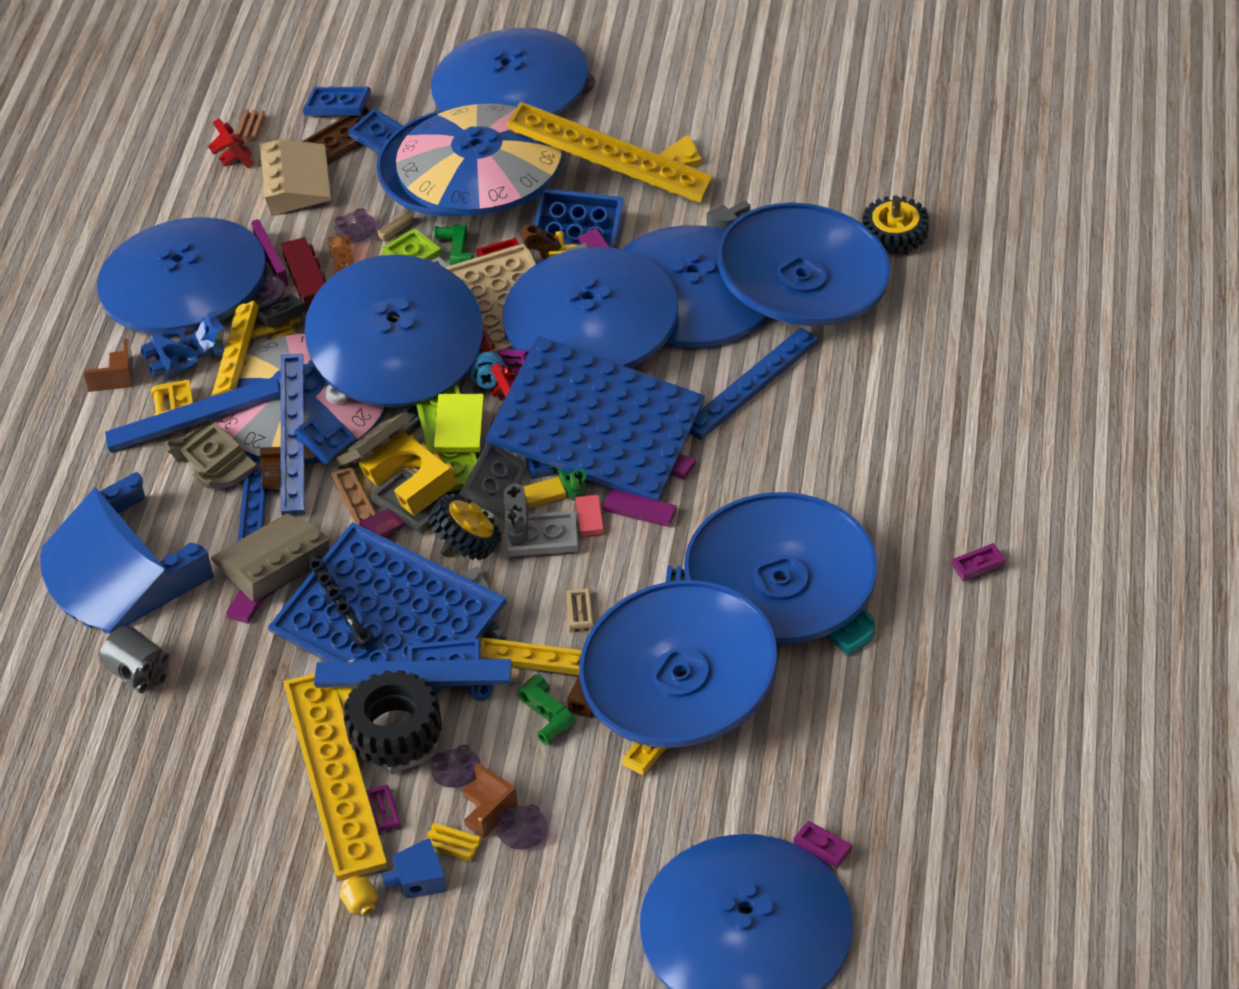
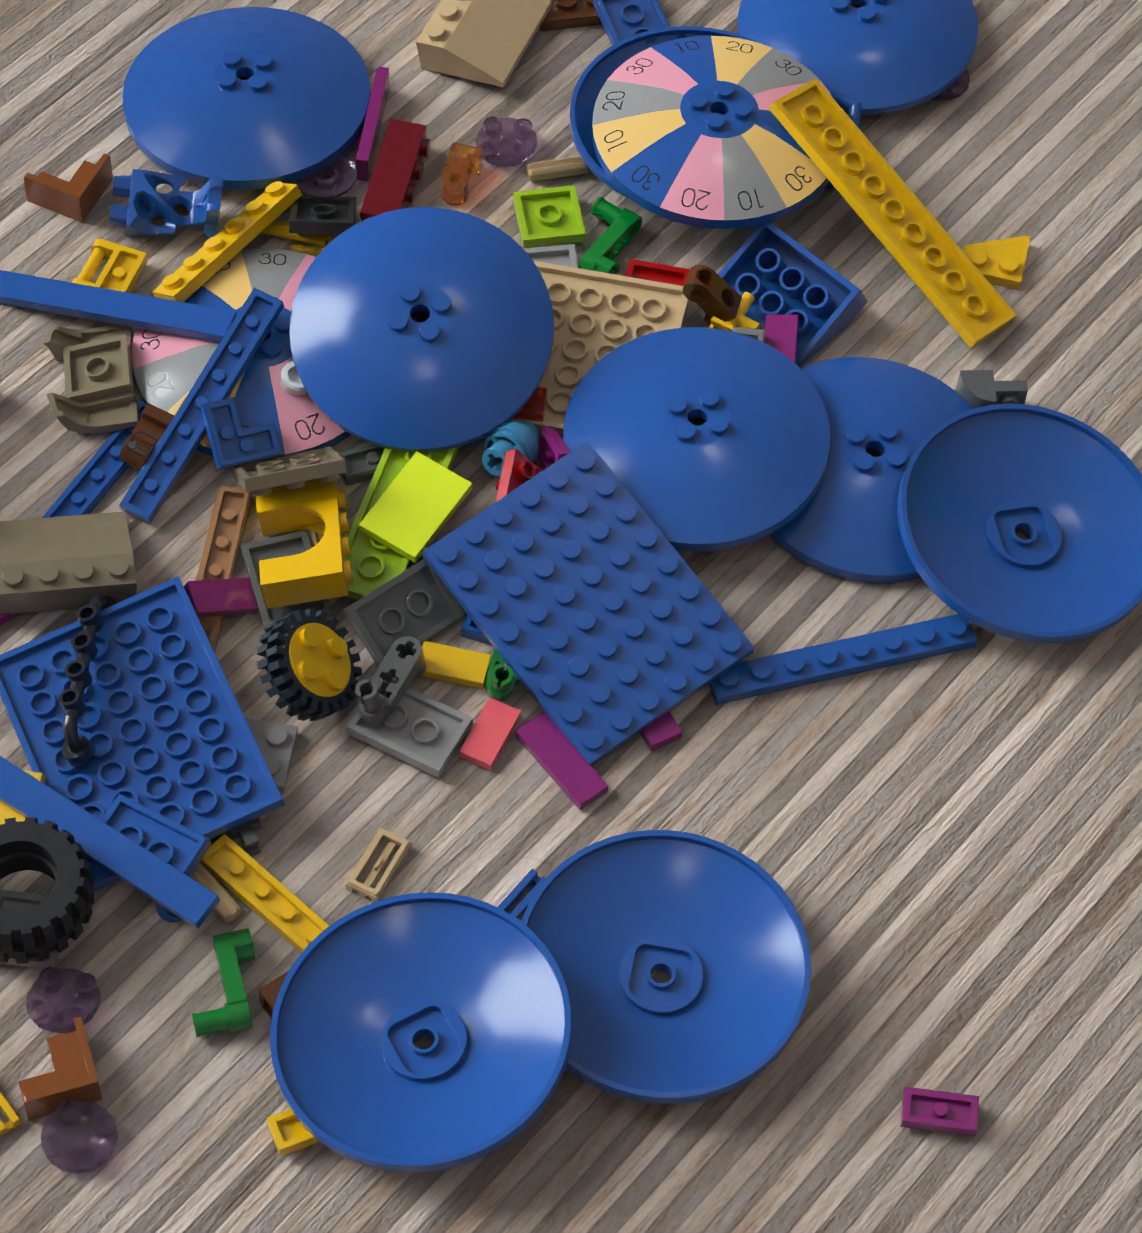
camera: 25 degrees right, 10 degrees up
(854, 634) = (701, 1119): teal tile -> none

